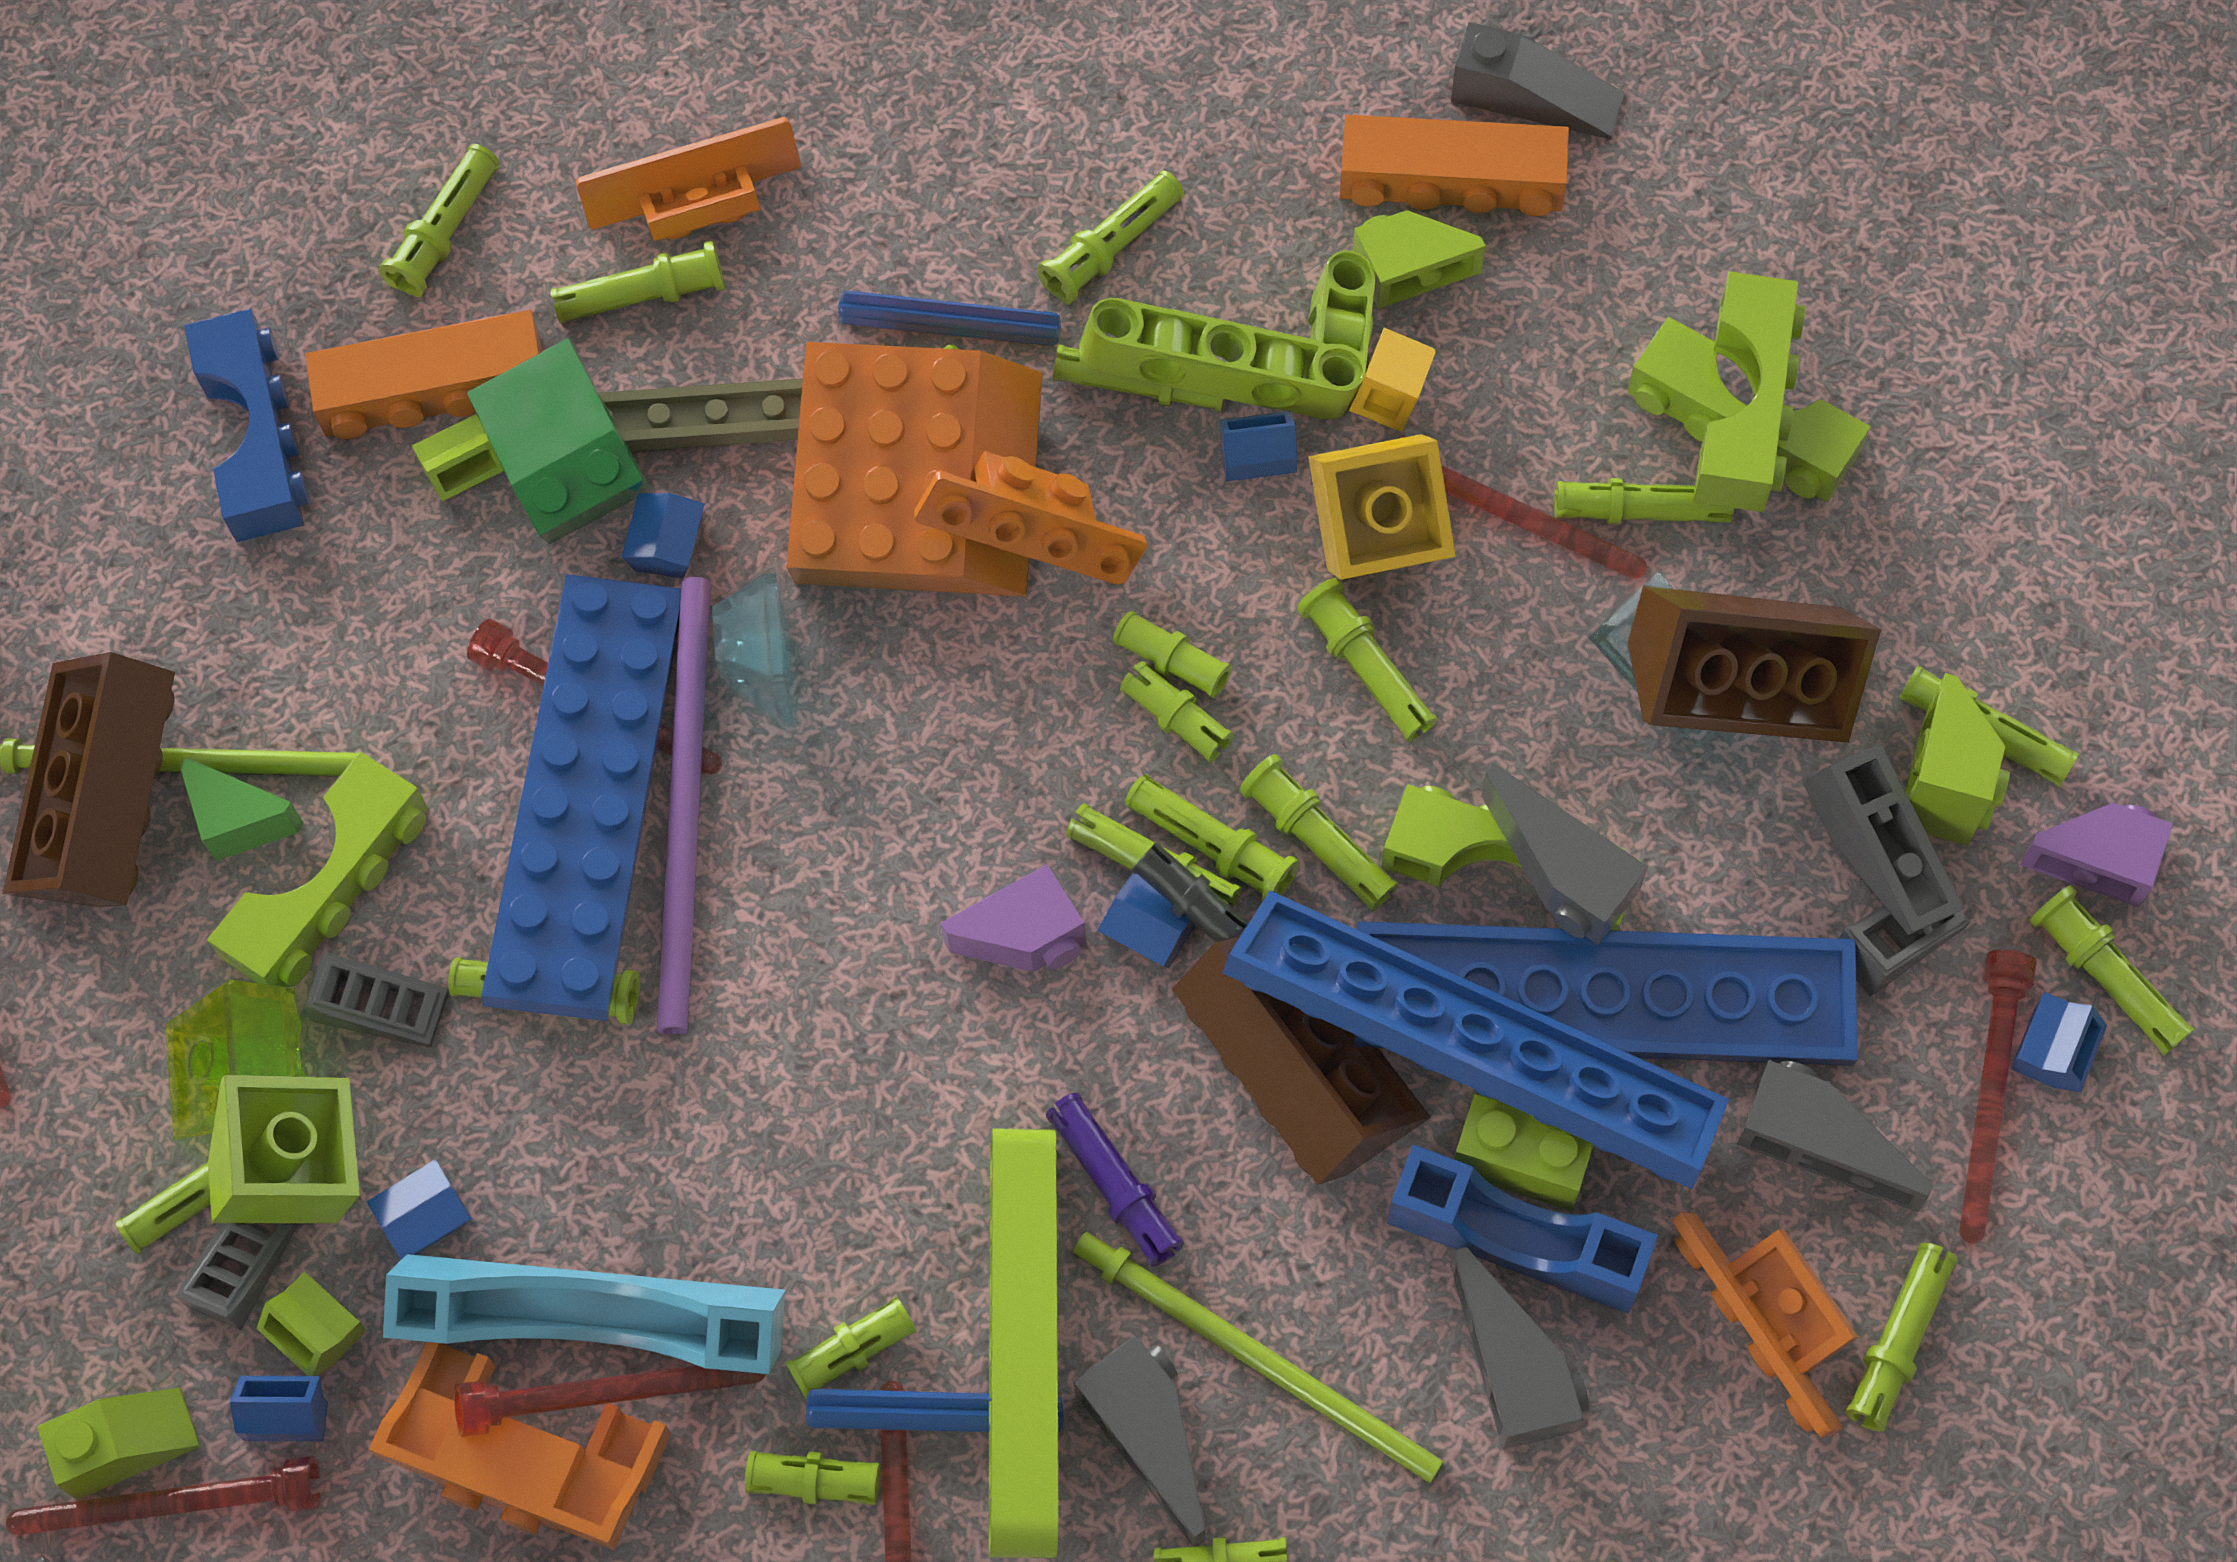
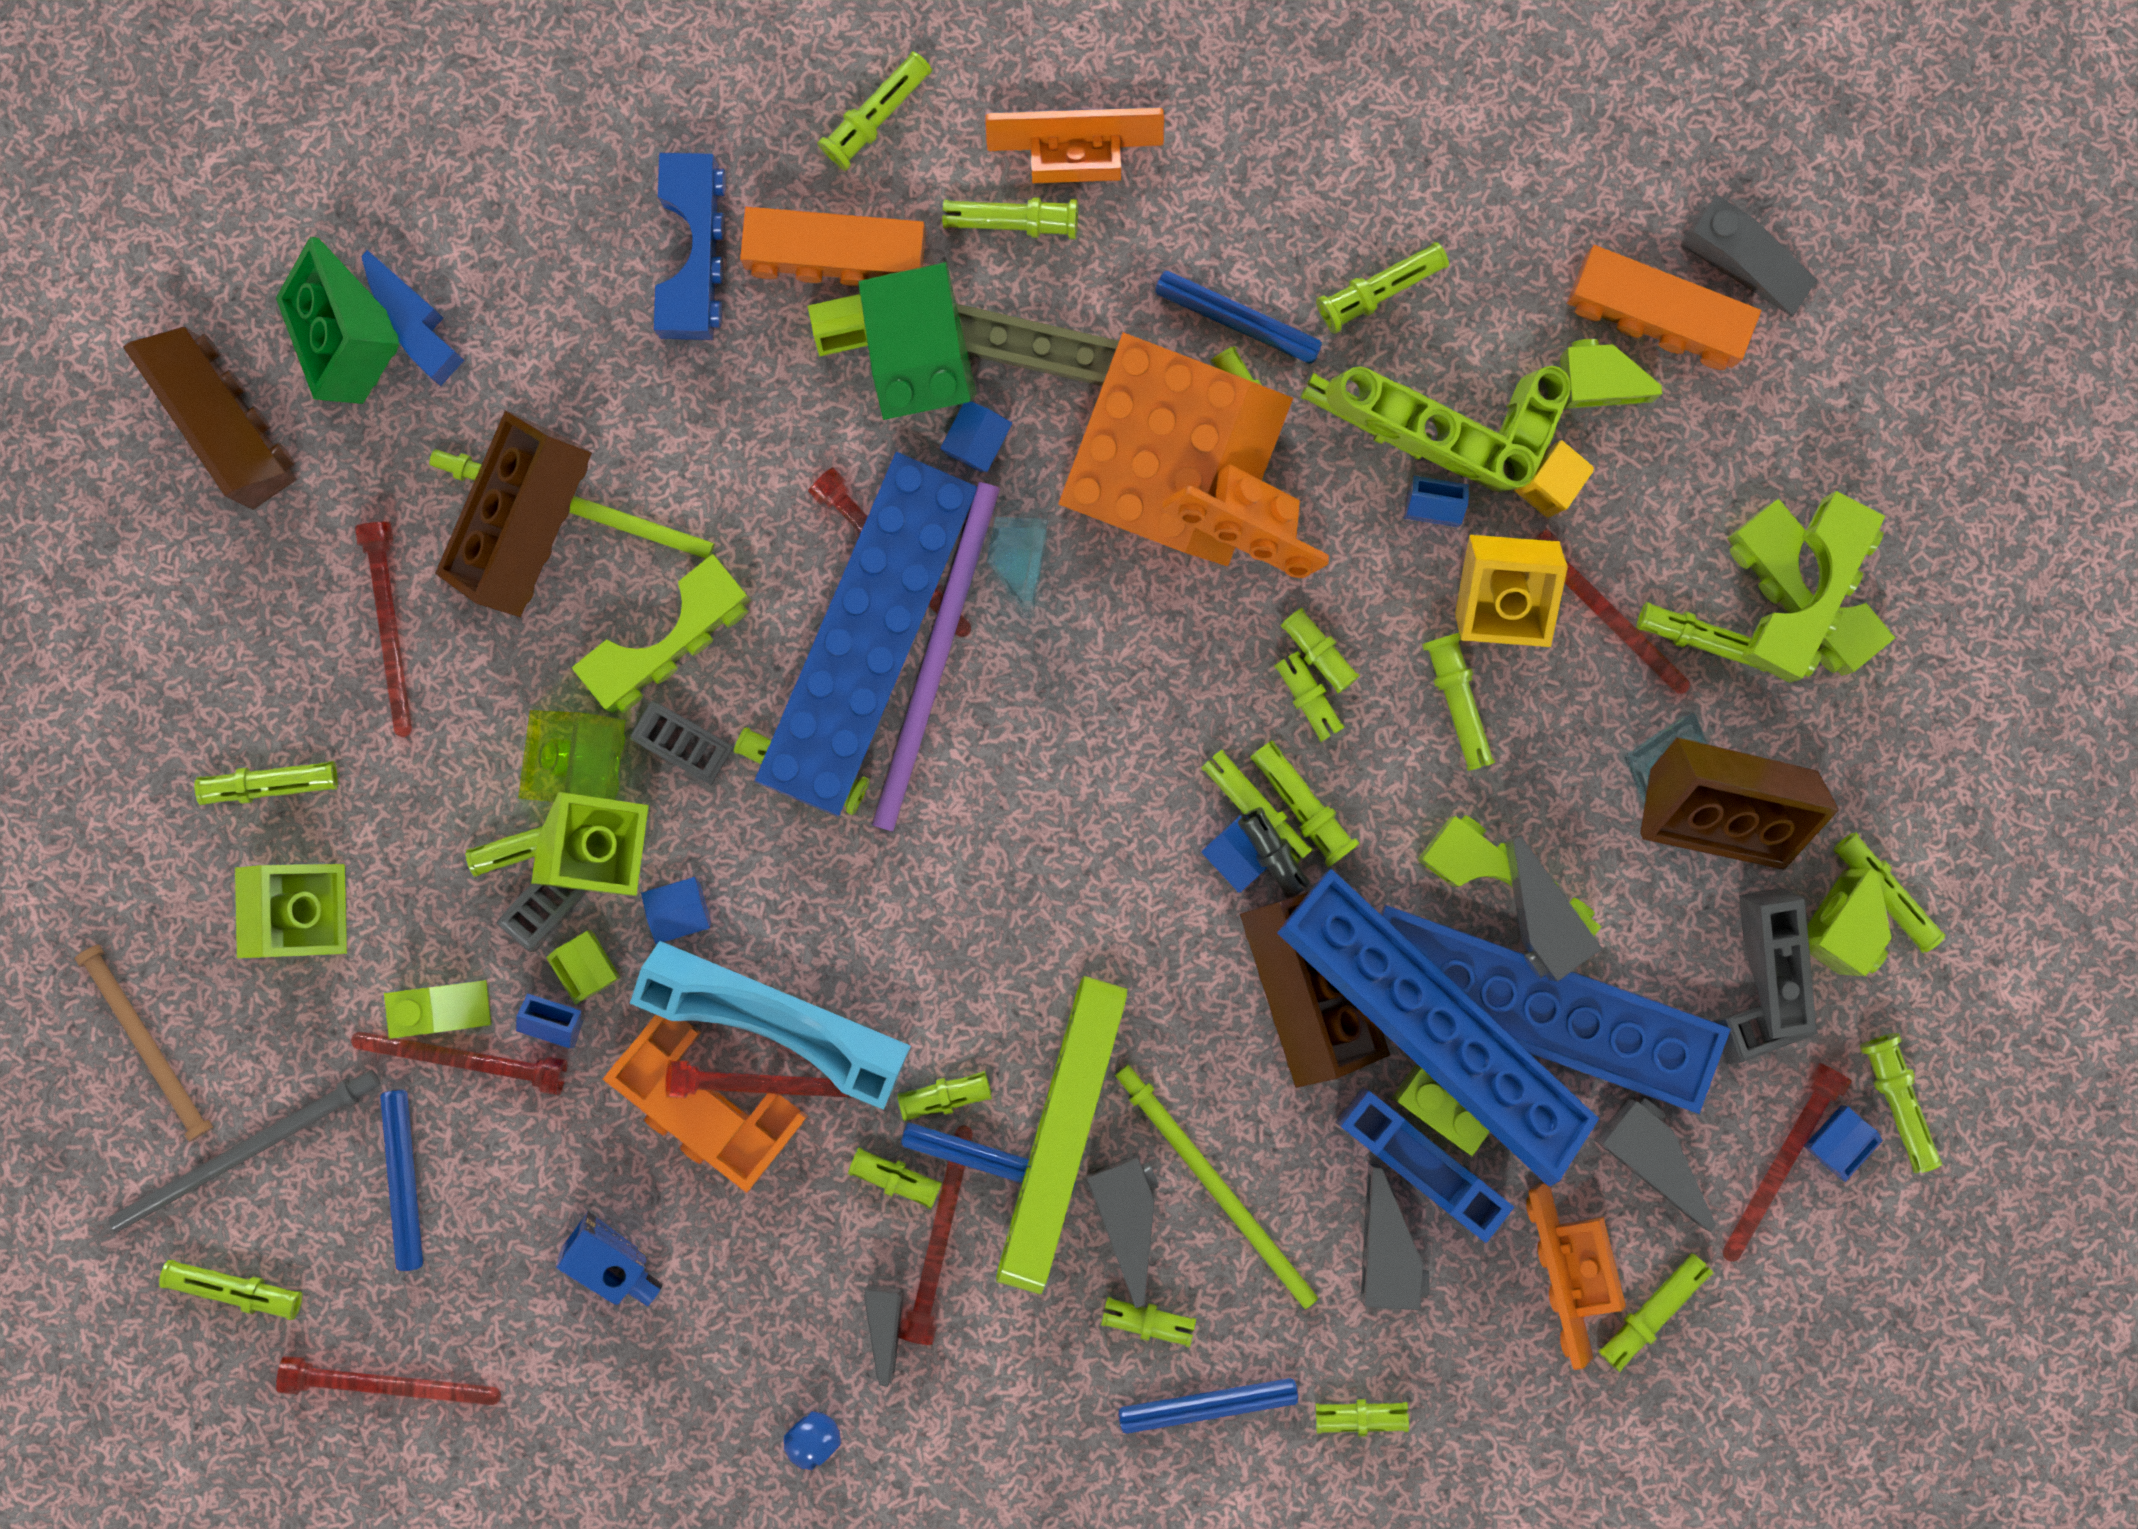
camera: 15 degrees right, 20 degrees up
(234, 813) = (609, 567): bright green slope -> none
(1020, 925) = (1149, 831): medium lavender slope -> none
(1128, 1198) = (1158, 1035): dark purple pin -> none
(1299, 813) = (1372, 806): lime pin -> none
(2104, 851) = (1936, 1016): medium lavender slope -> none

